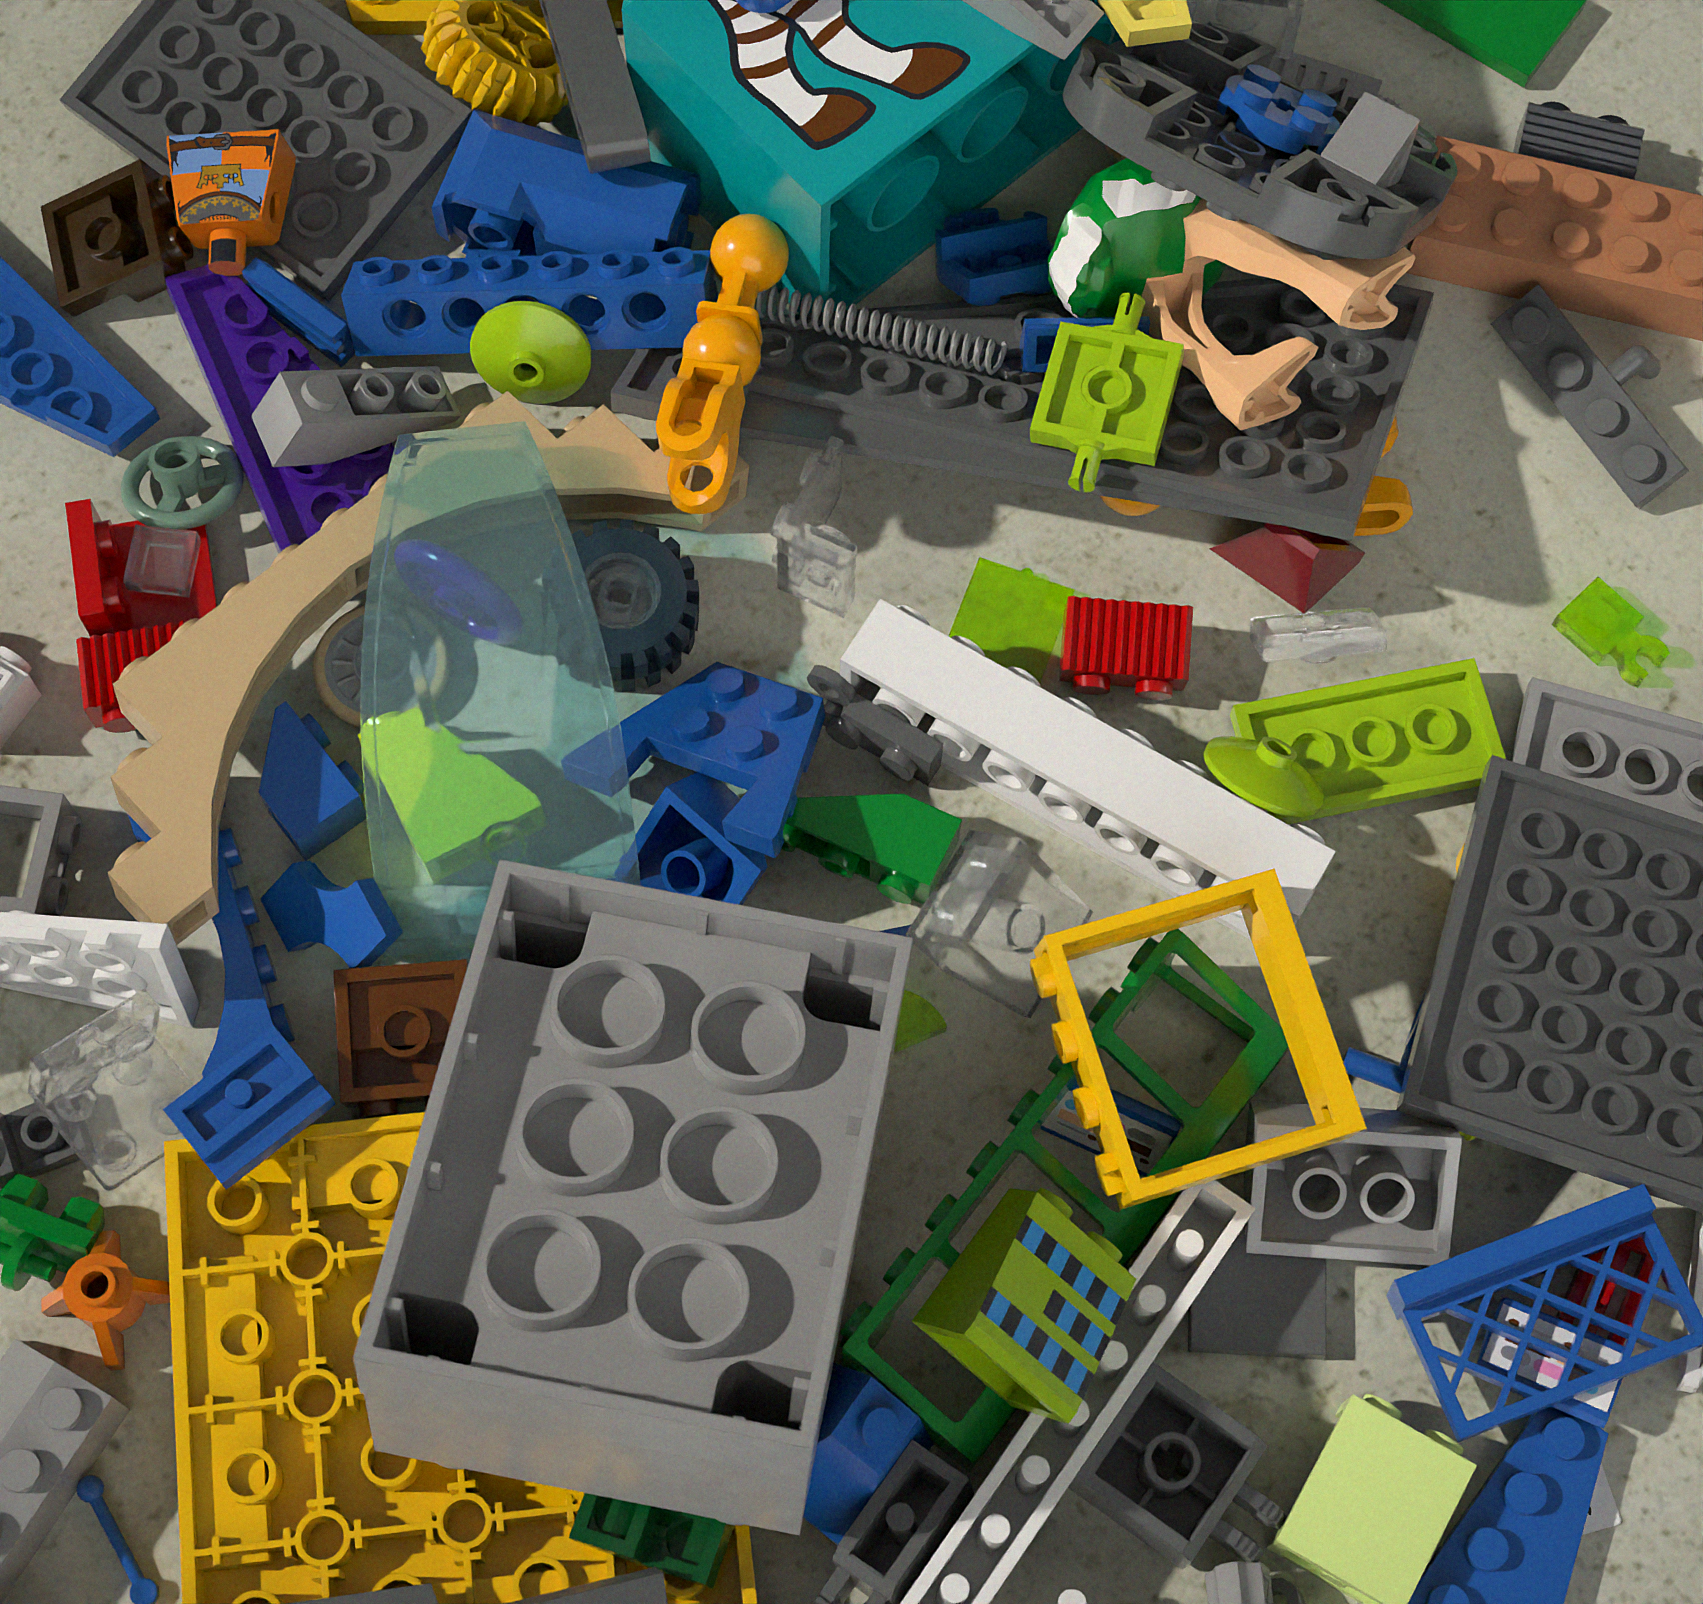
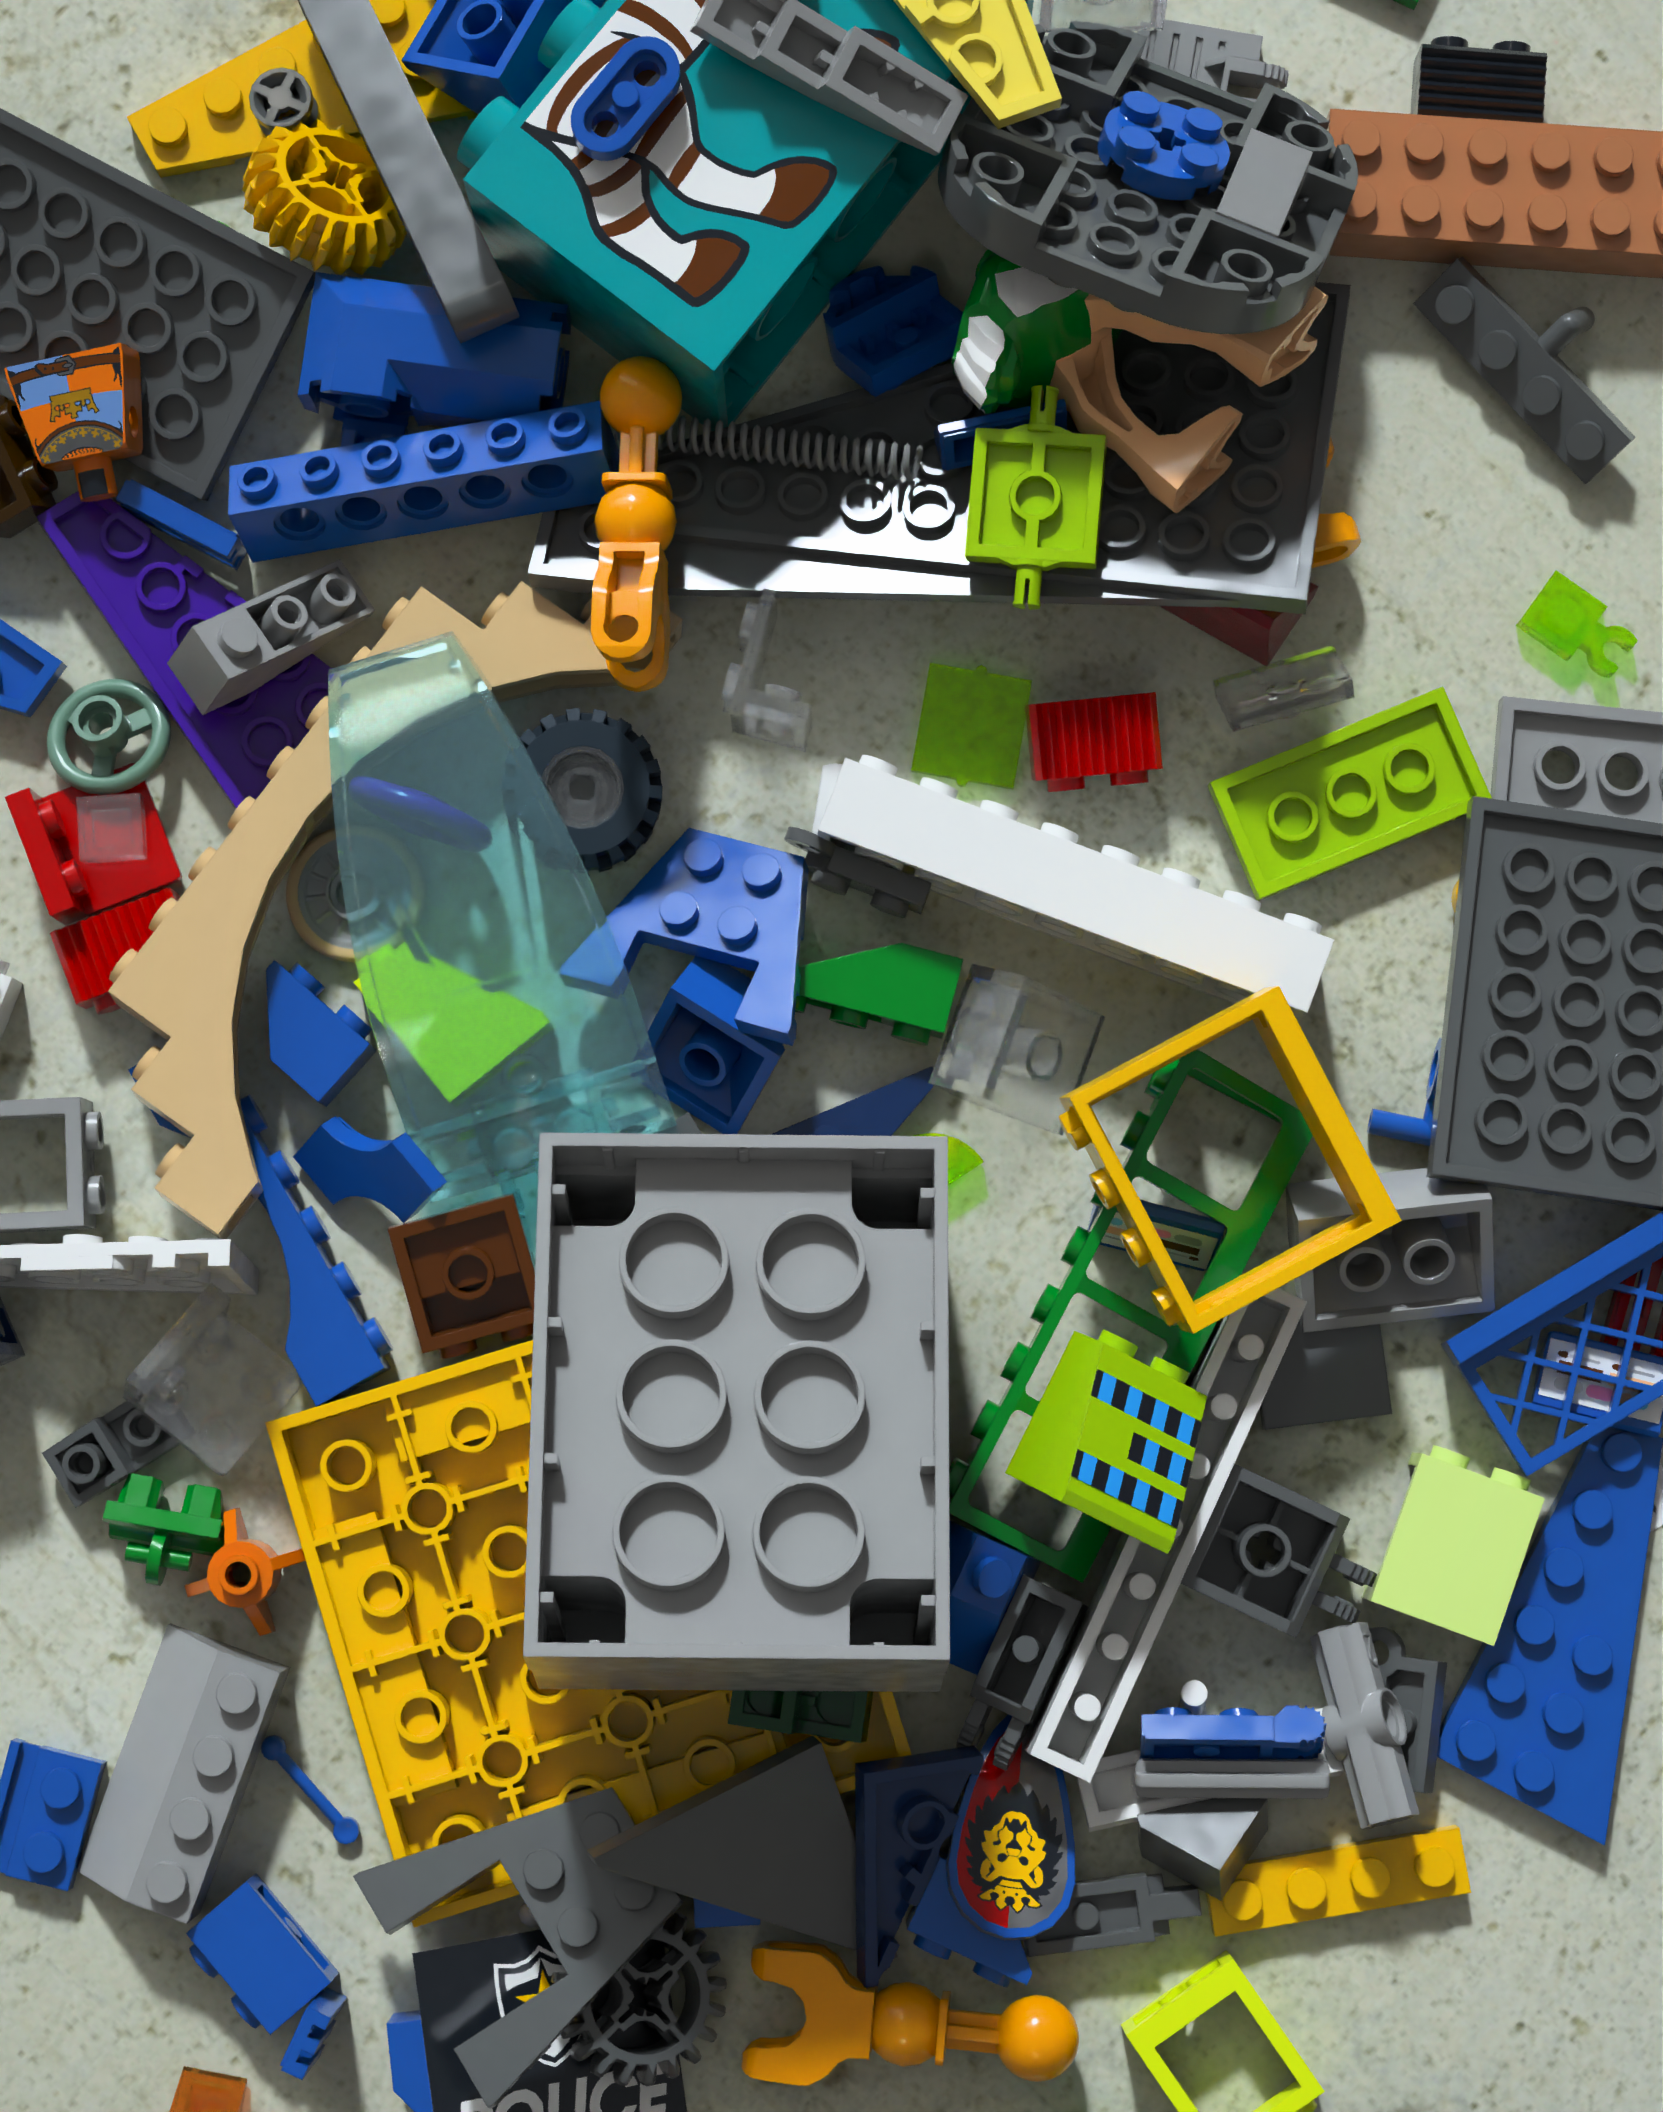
camera: 10 degrees left, 15 degrees up
(249, 1106) = (340, 1379): blue plate -> none
(536, 336) = (433, 533): lime dish -> none
(1264, 774) = (1252, 864): lime dish -> none

